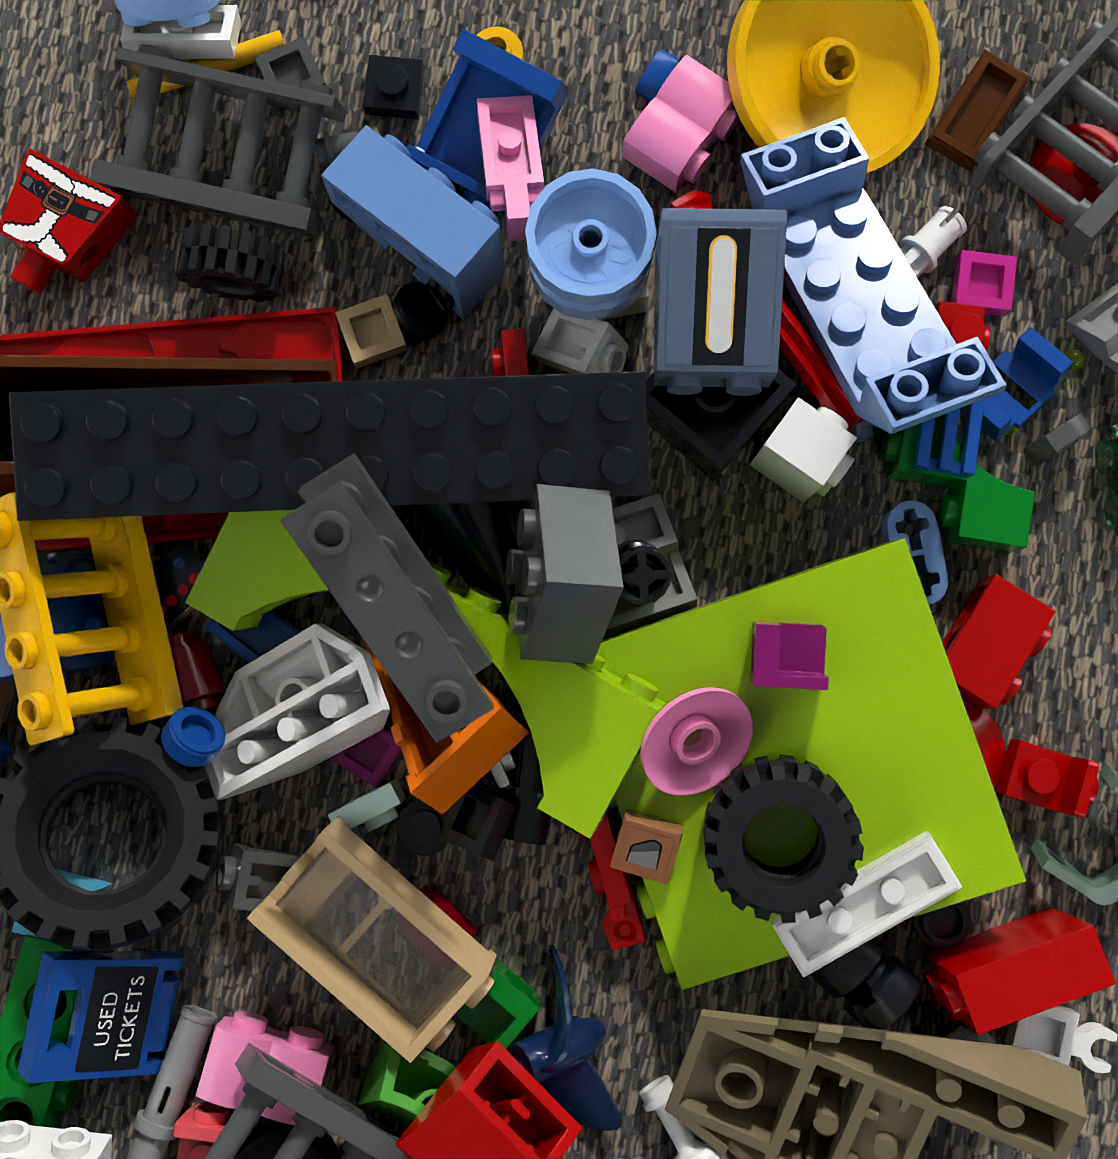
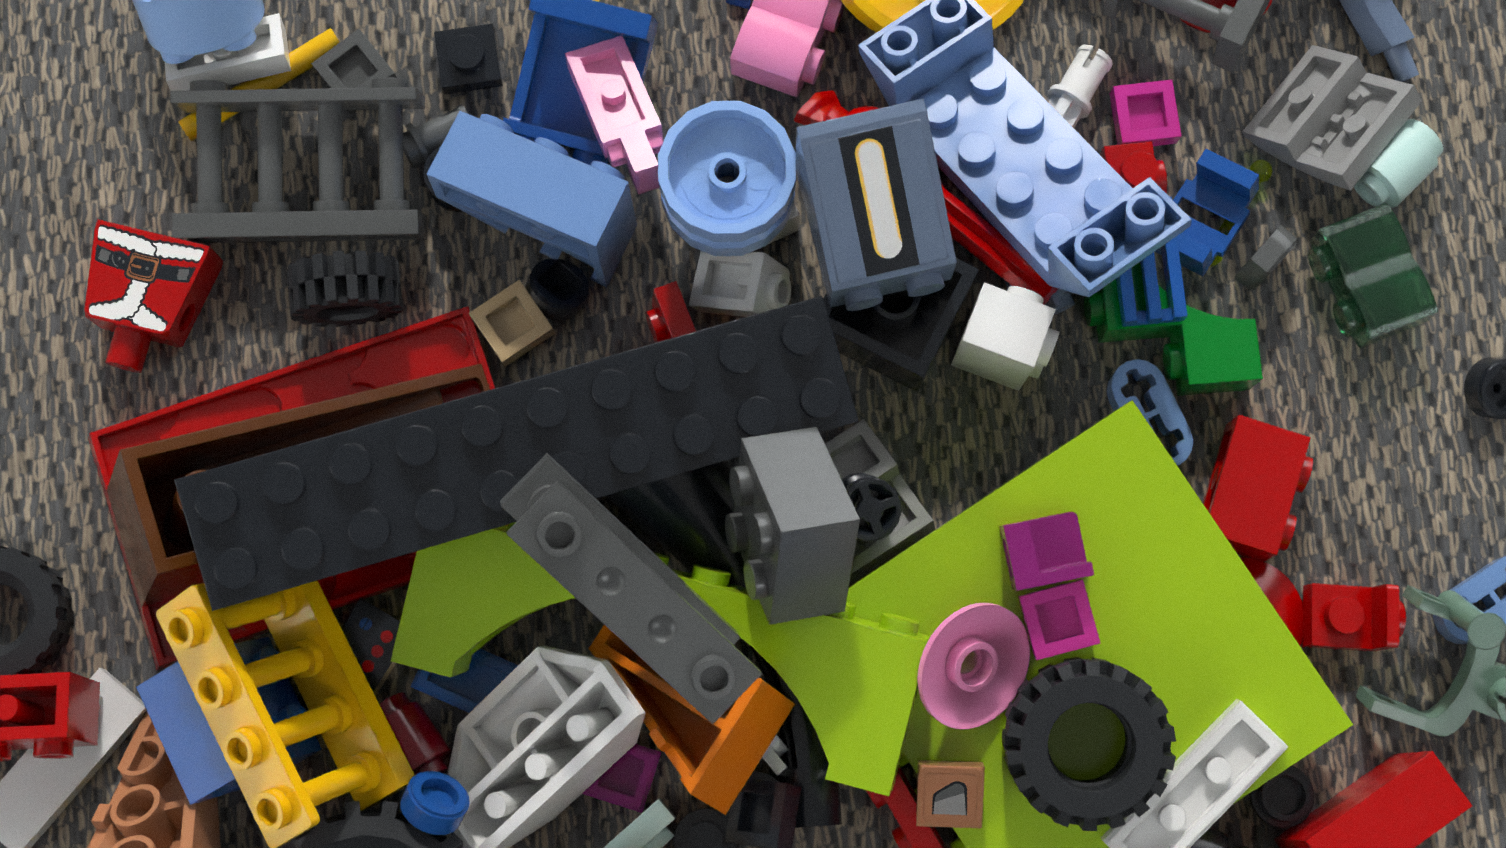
camera: 20 degrees left, 5 degrees down
(785, 720) = (1059, 619): none -> dark pink plate

